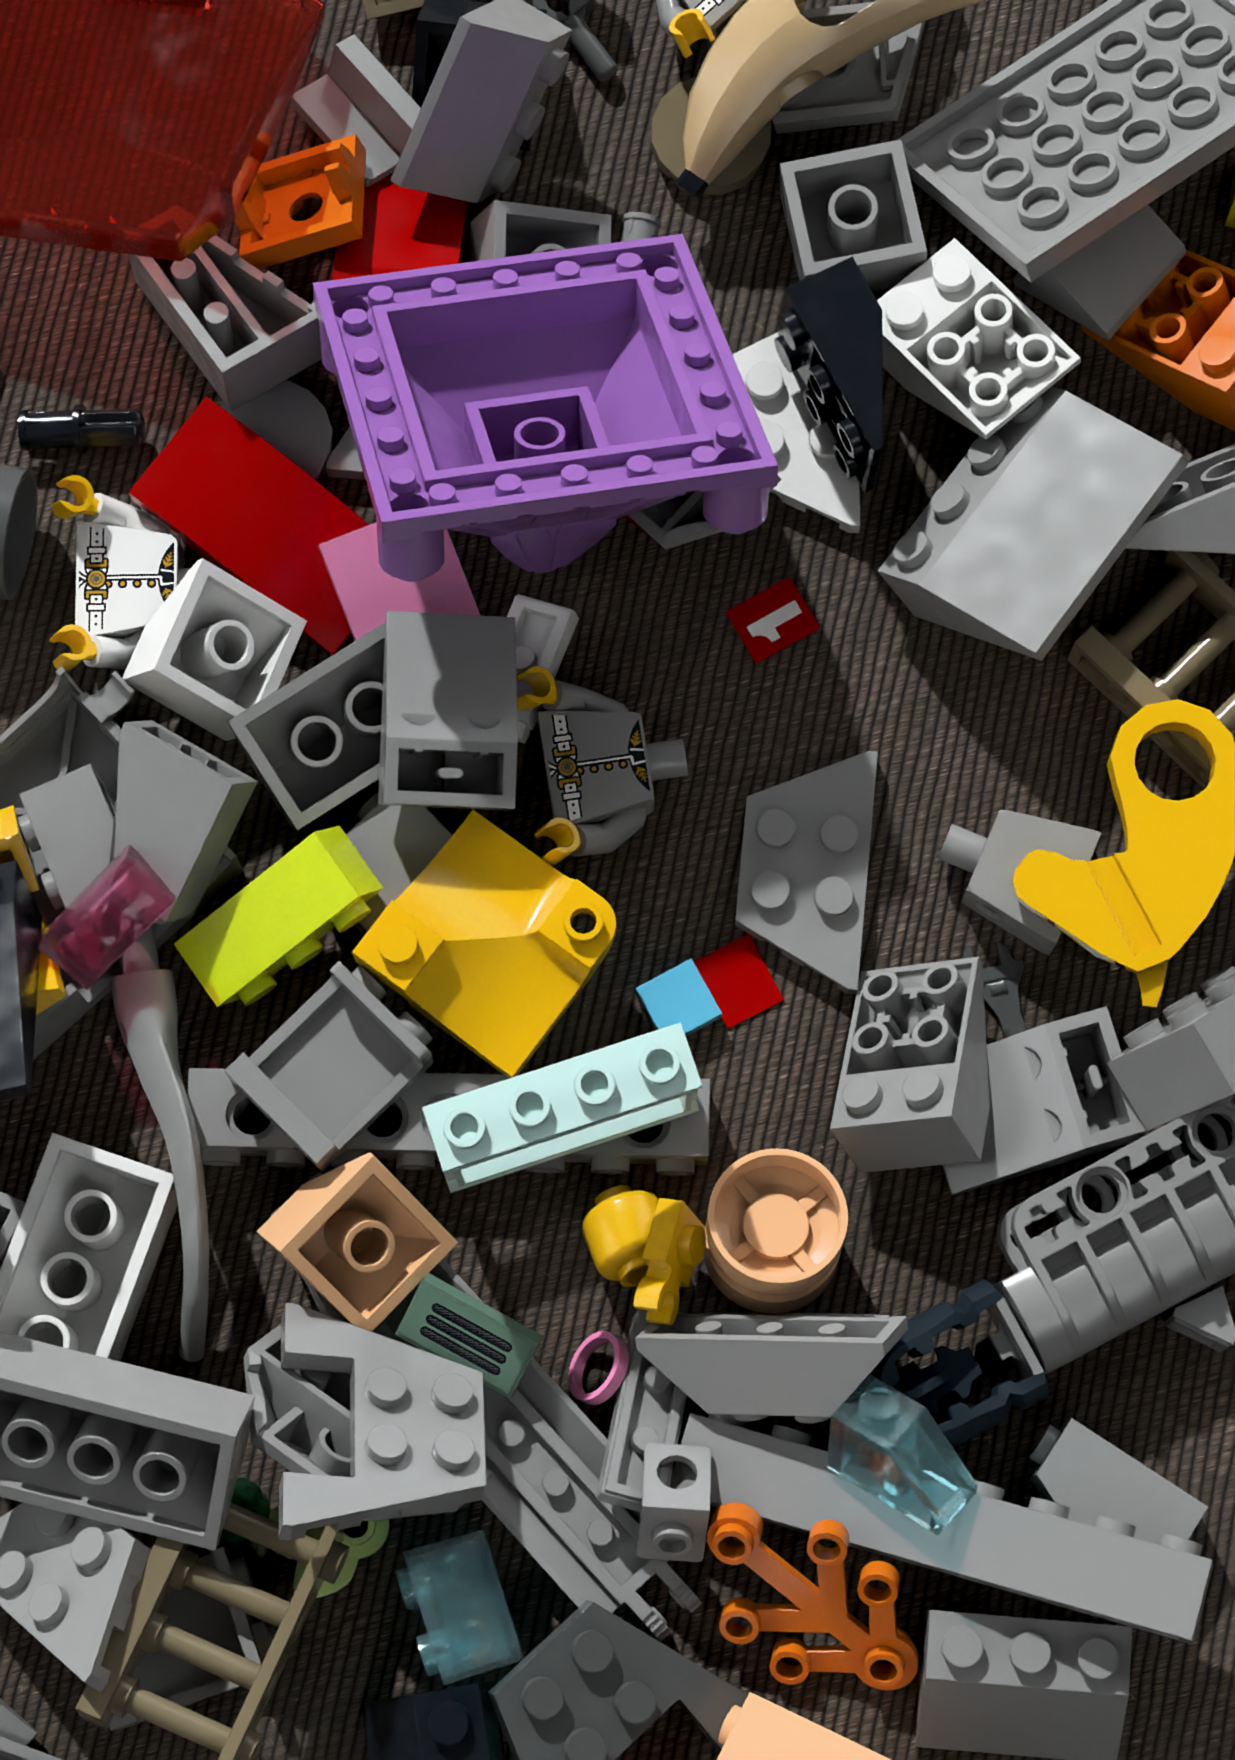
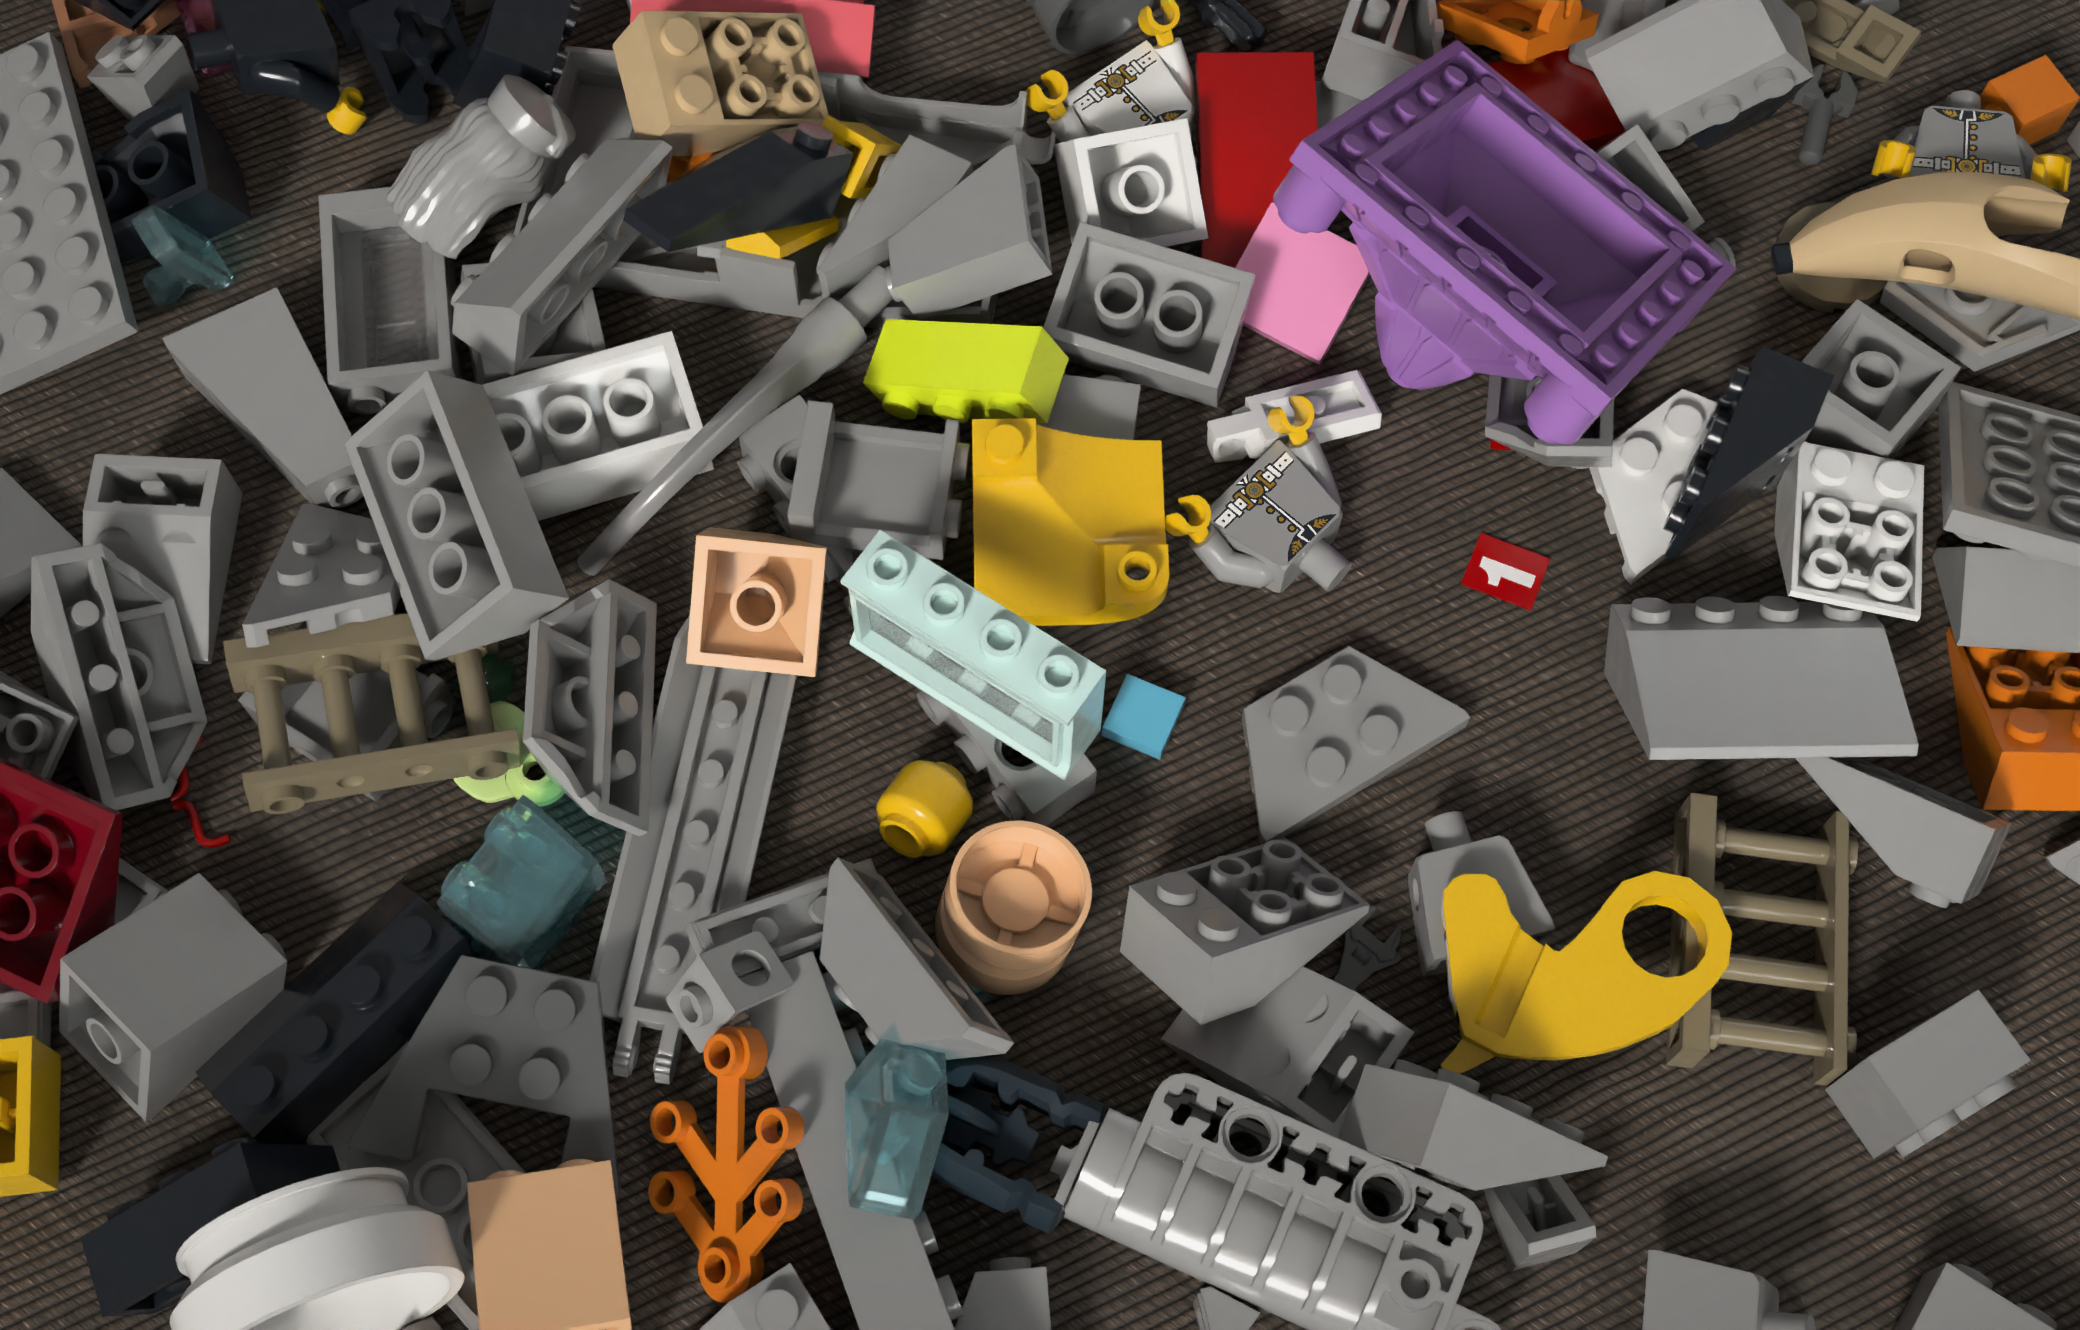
camera: 50 degrees right, 10 degrees down
(106, 918) = (861, 244): clear pink slope -> none
(411, 1427) = (624, 738): light grey wing -> none
(449, 712) = (1215, 360): light grey slope -> none
(469, 1333) = (747, 738): sand green tile -> none
(616, 1375) = (801, 873): bright pink piece -> none
(671, 1252) = (925, 842): yellow plate -> none
(739, 980) = (1199, 752): red sticker -> none

